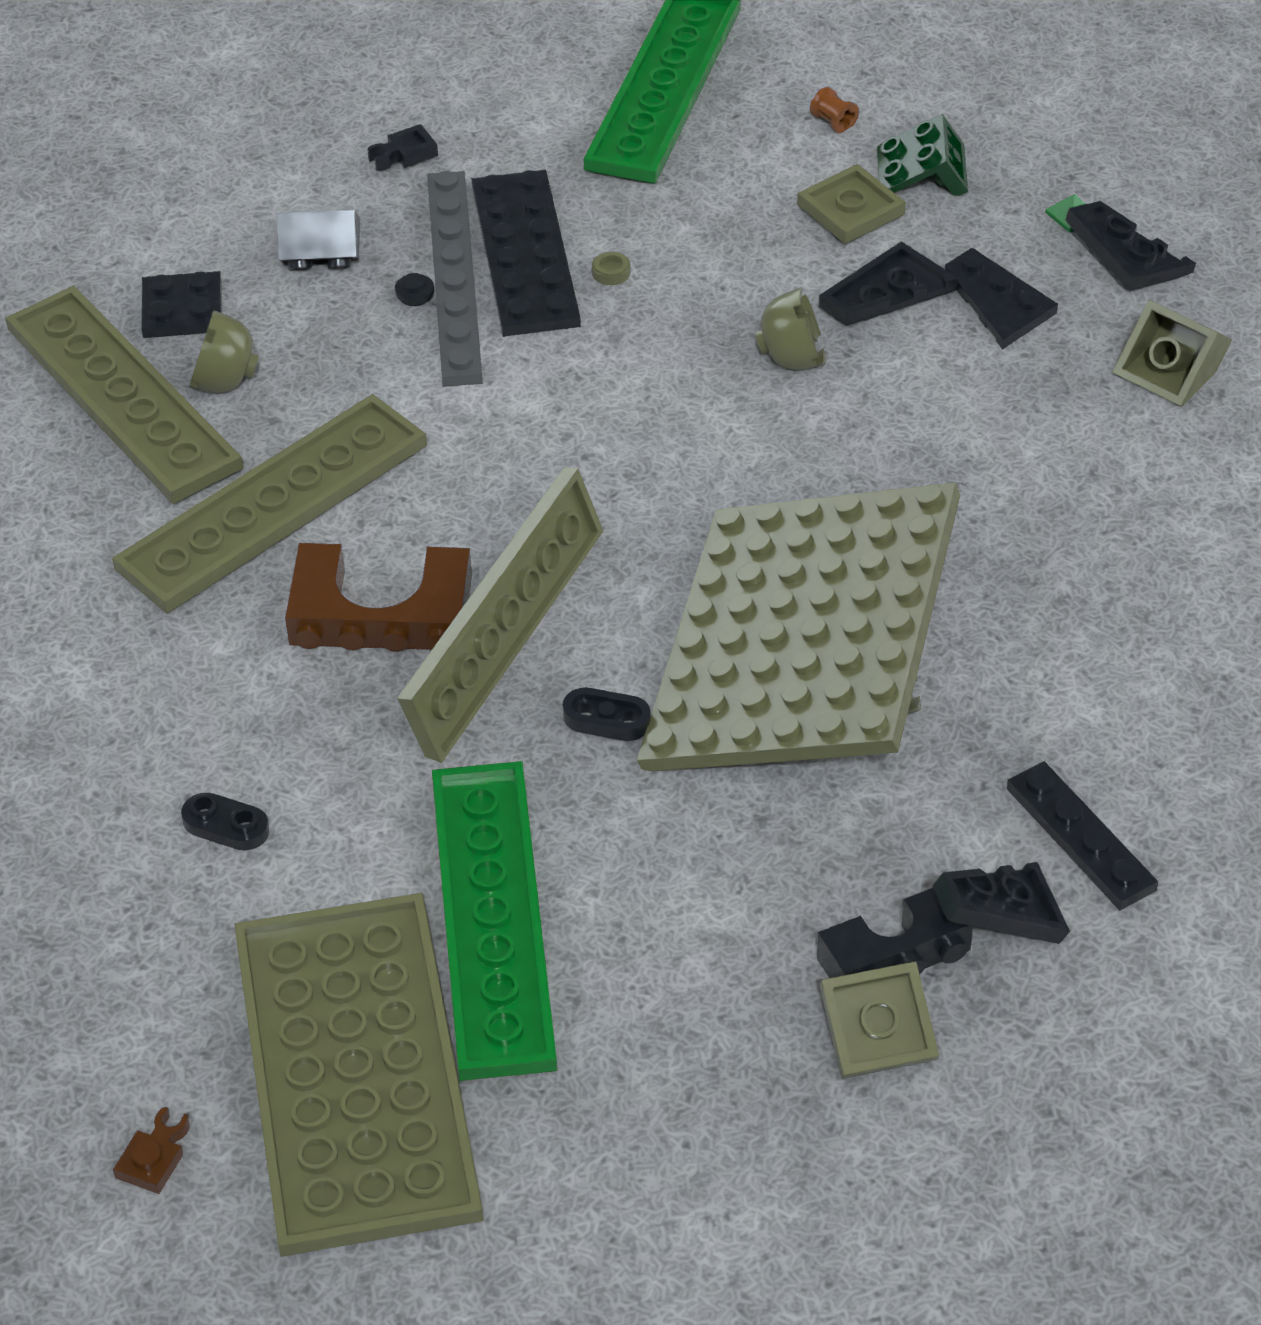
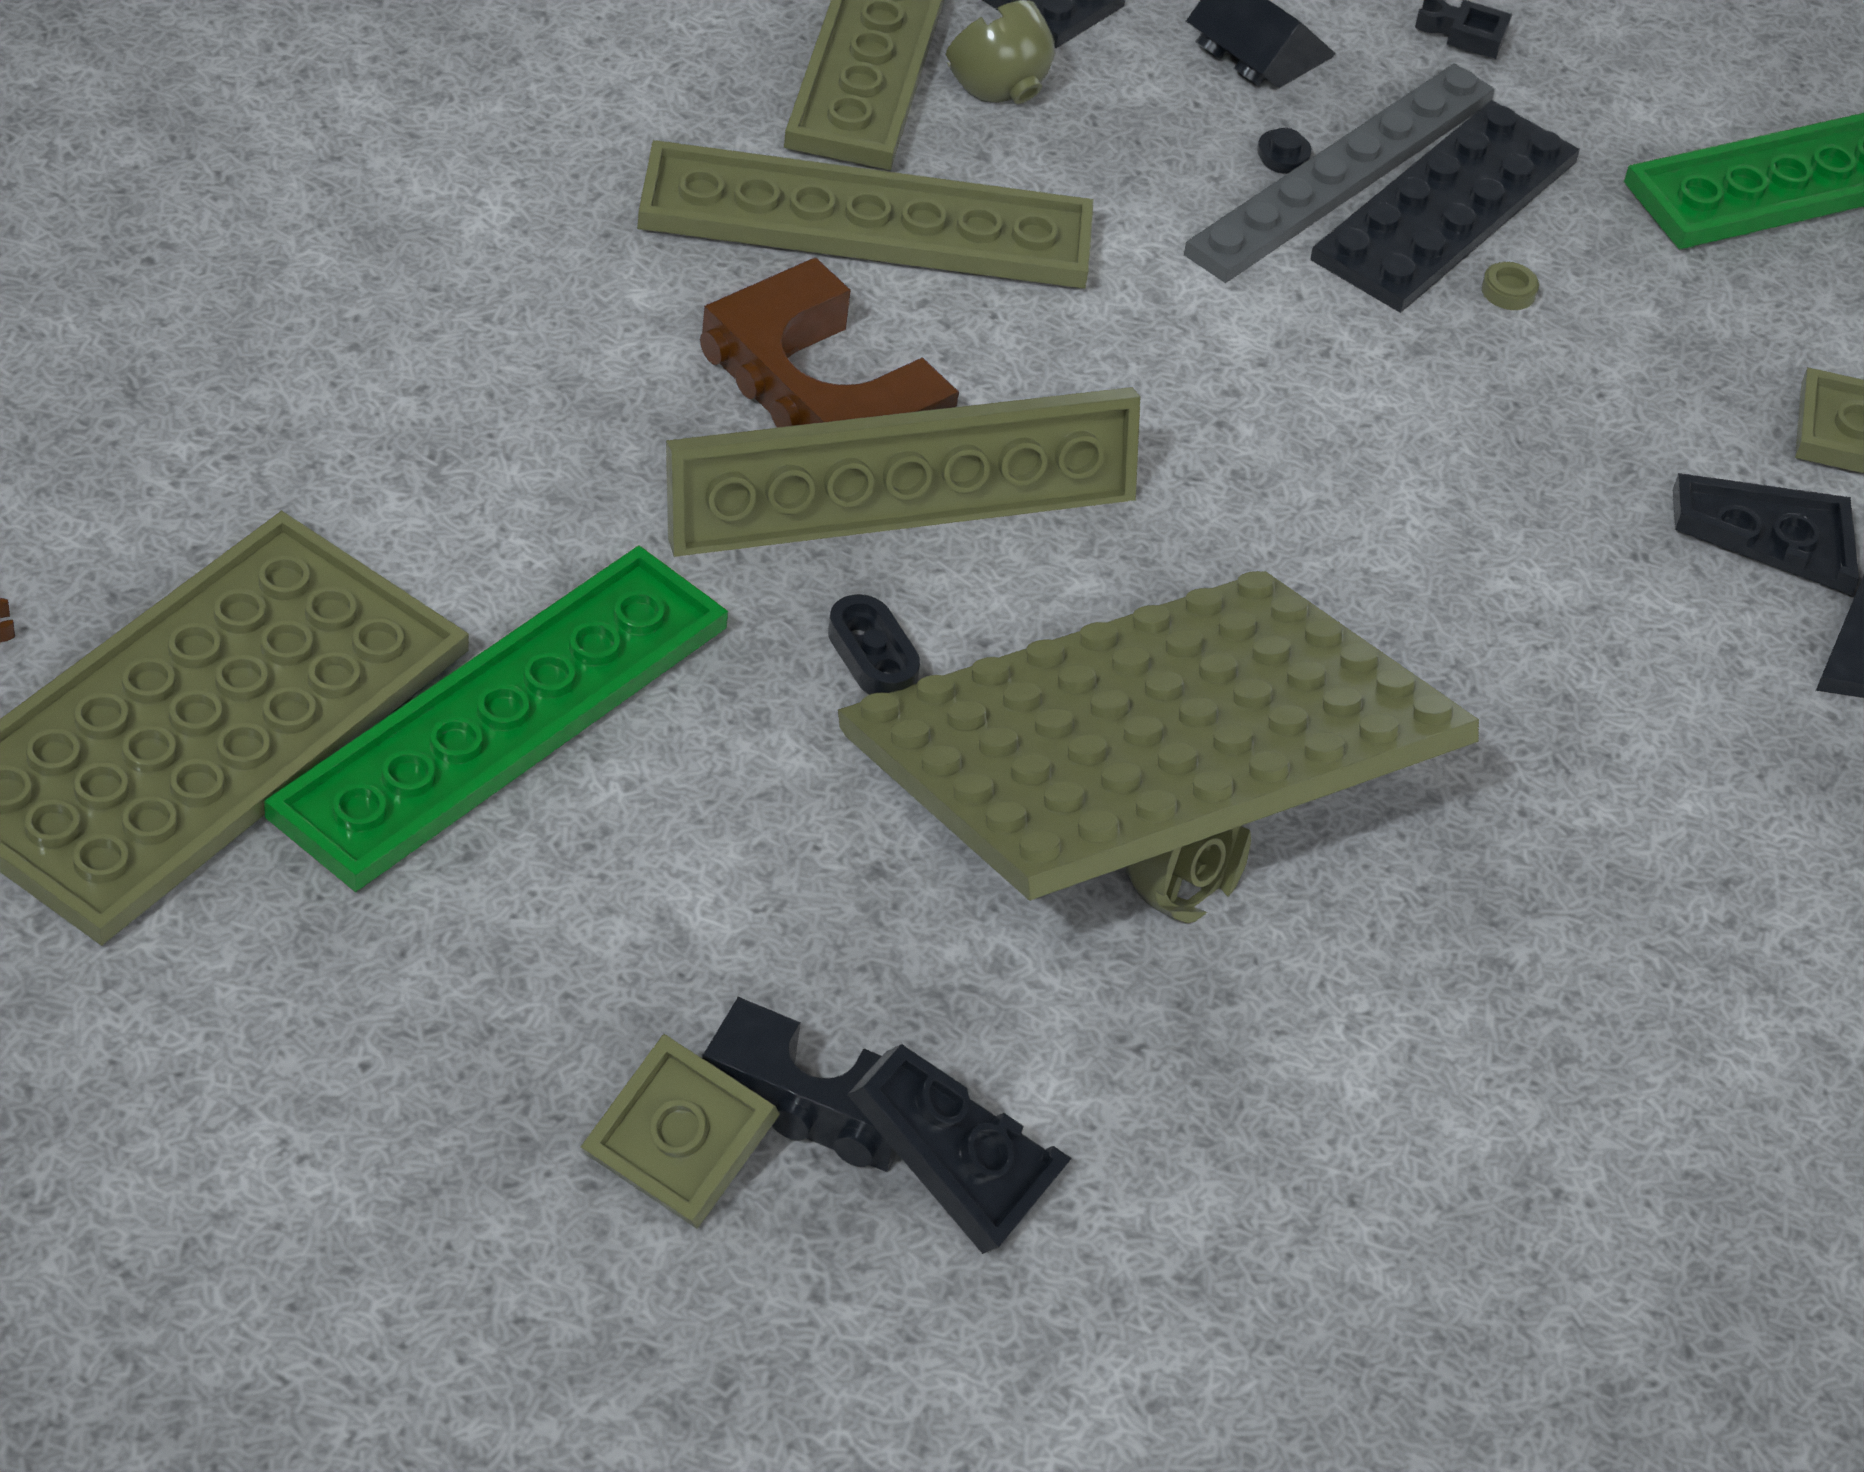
camera: 40 degrees right, 0 degrees up
(223, 821) = (416, 432): black plate -> none
(791, 332) = (1590, 469): olive cylinder -> none
(1082, 835) = (1159, 1183): black plate -> none

